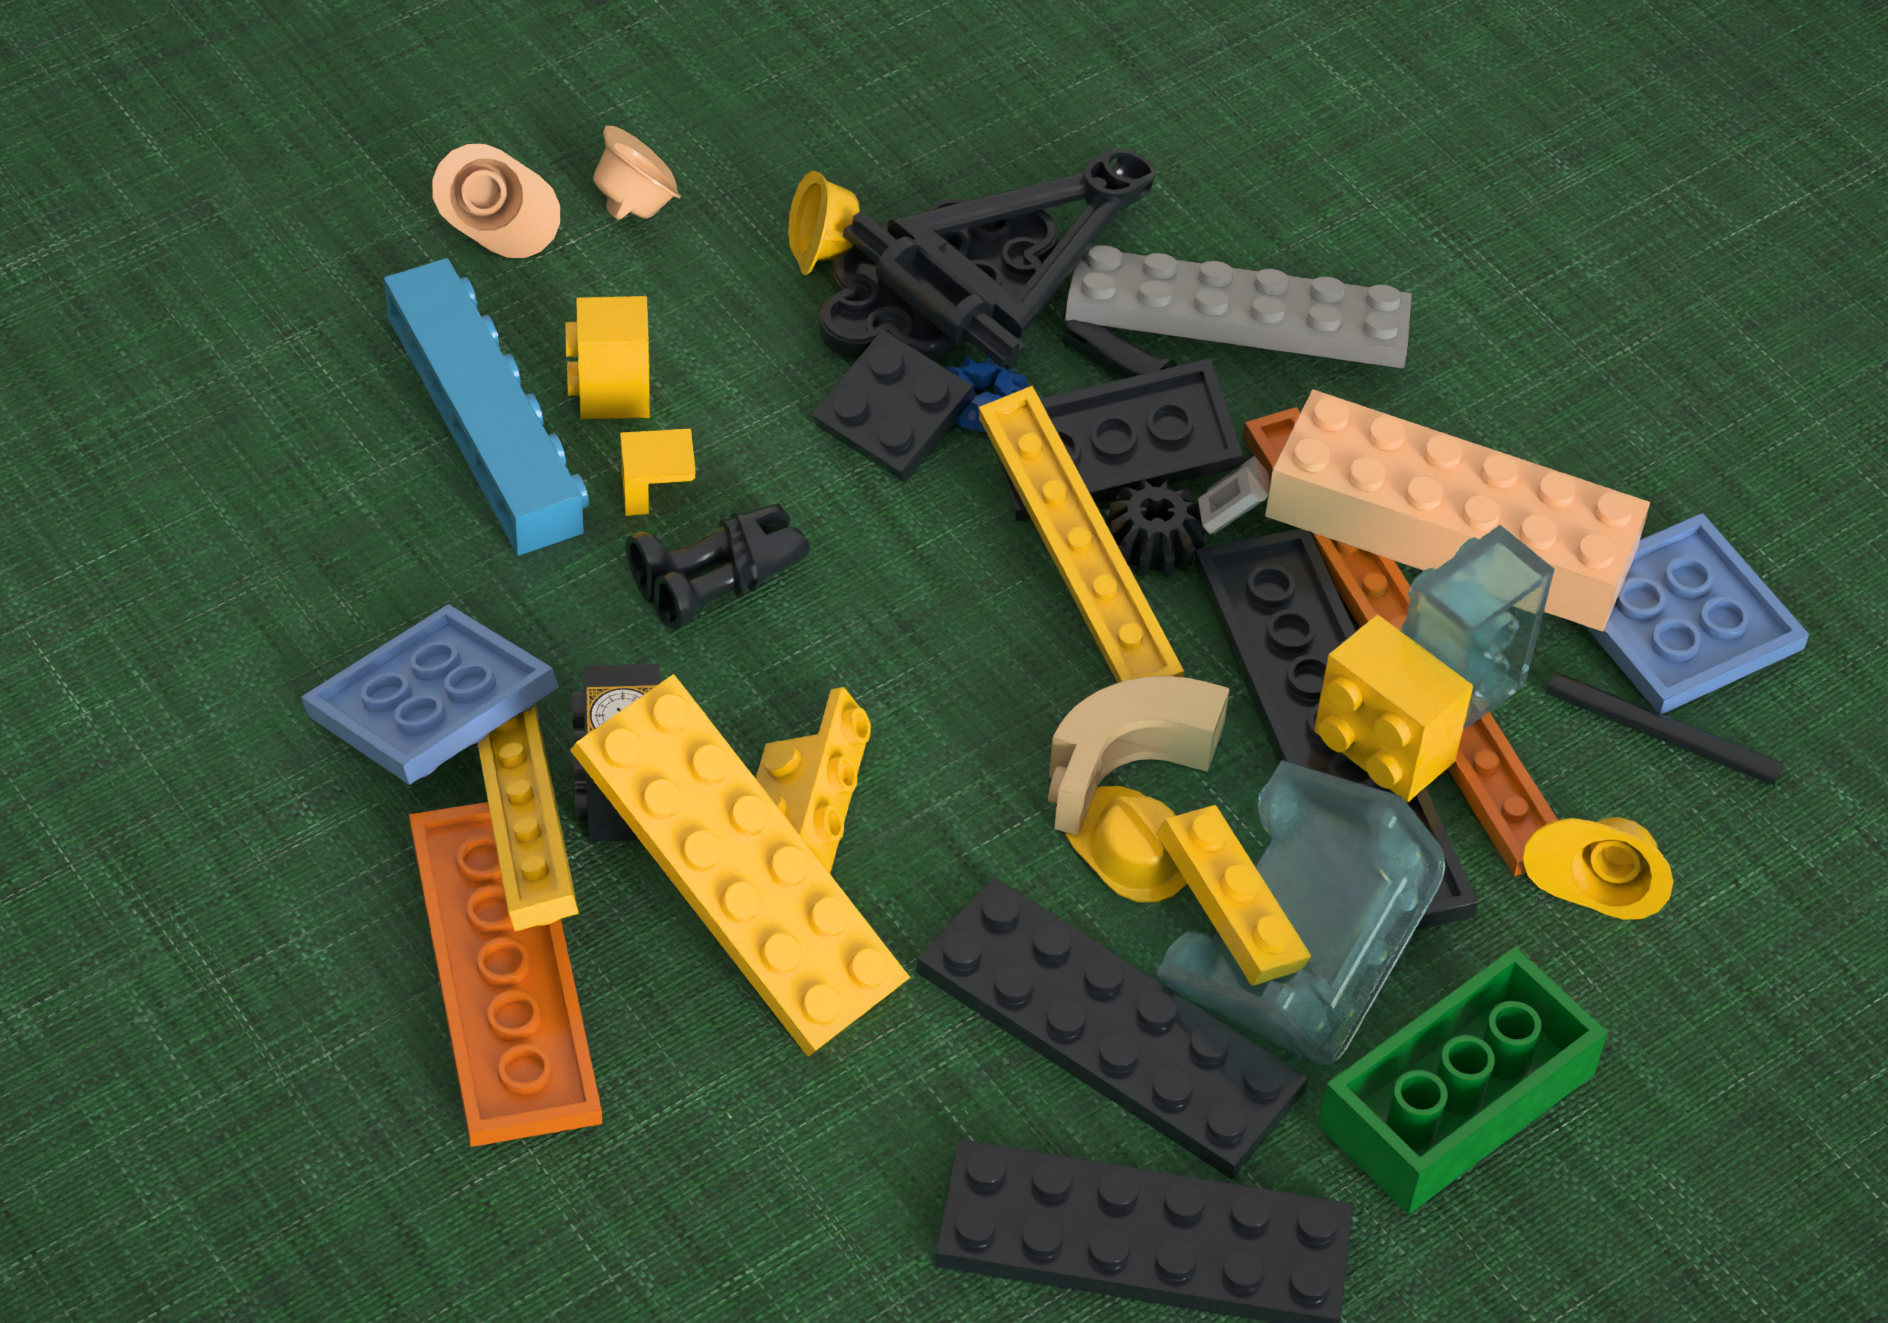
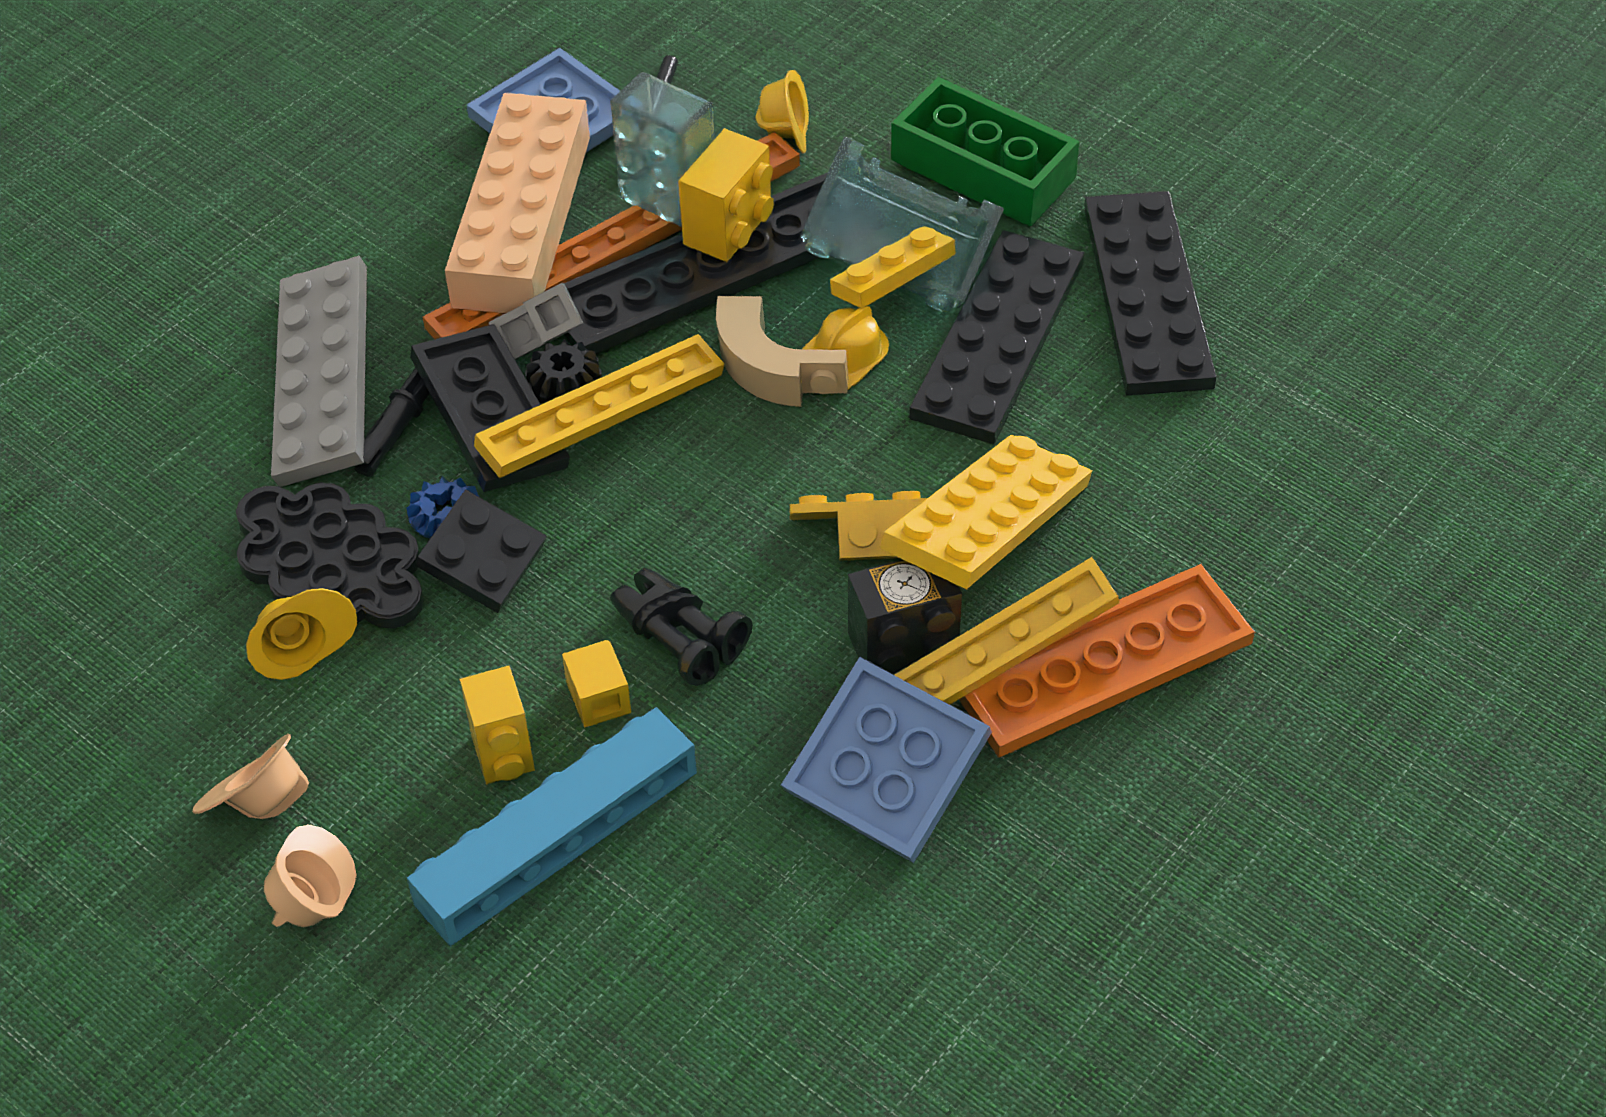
camera: 100 degrees left, 0 degrees up
(963, 297) = (349, 533): black piece -> none

